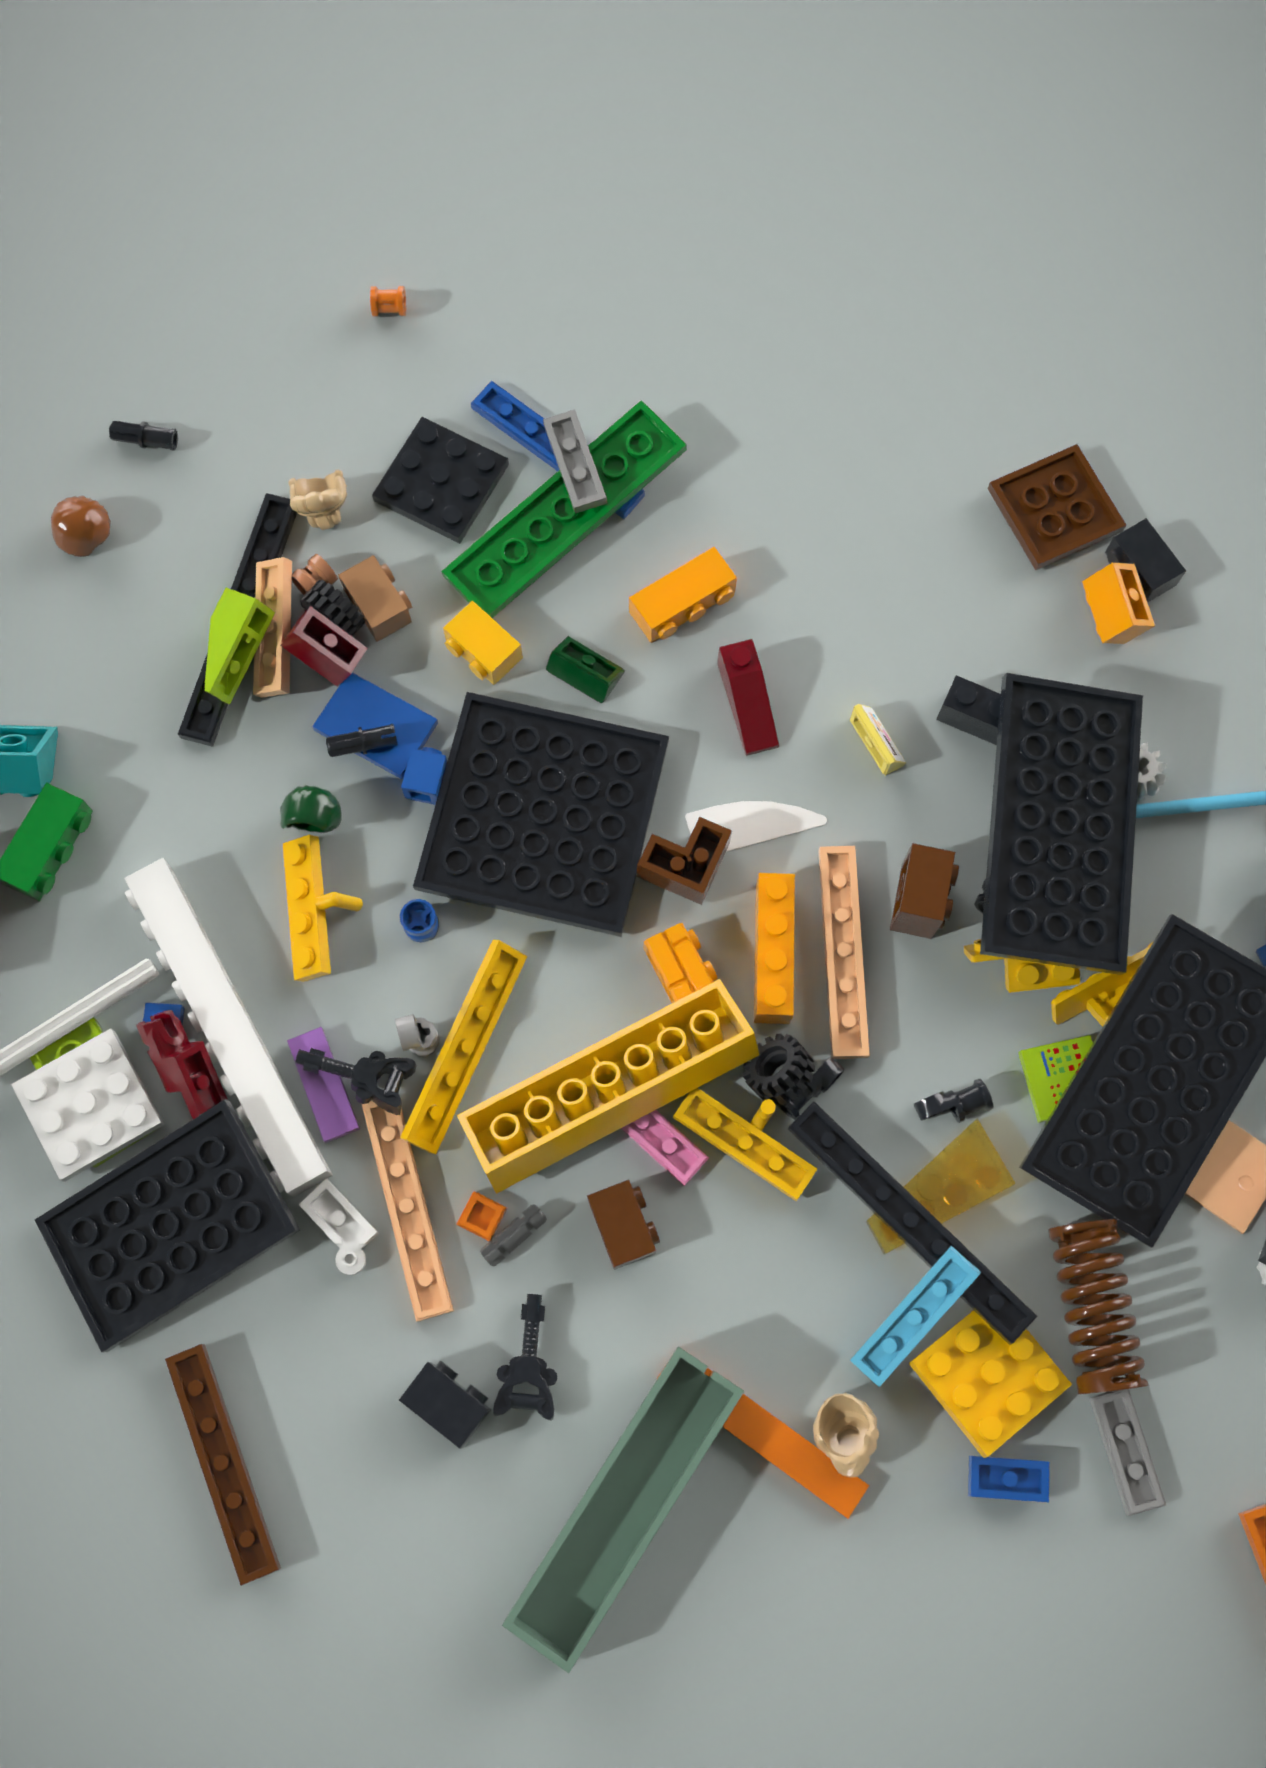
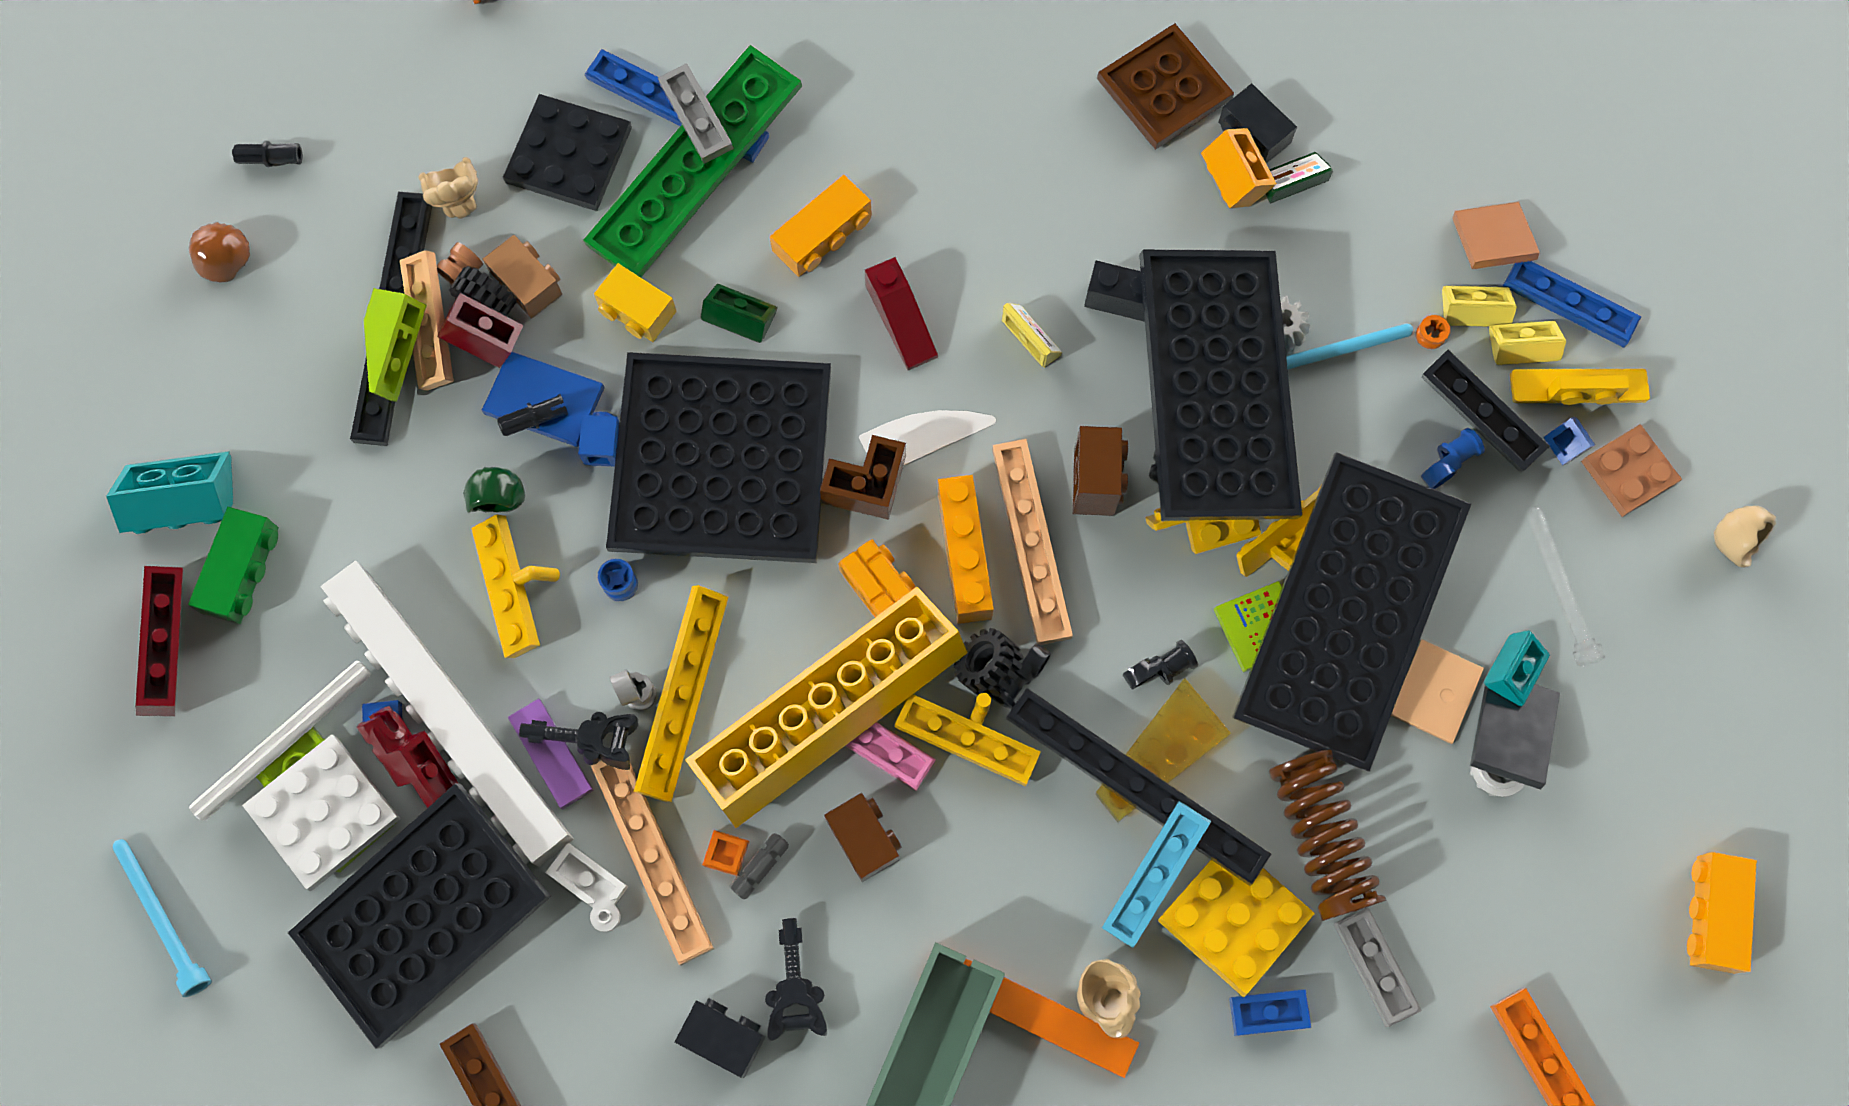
camera: 10 degrees left, 0 degrees up
(1179, 621) = (1298, 176): none -> slope

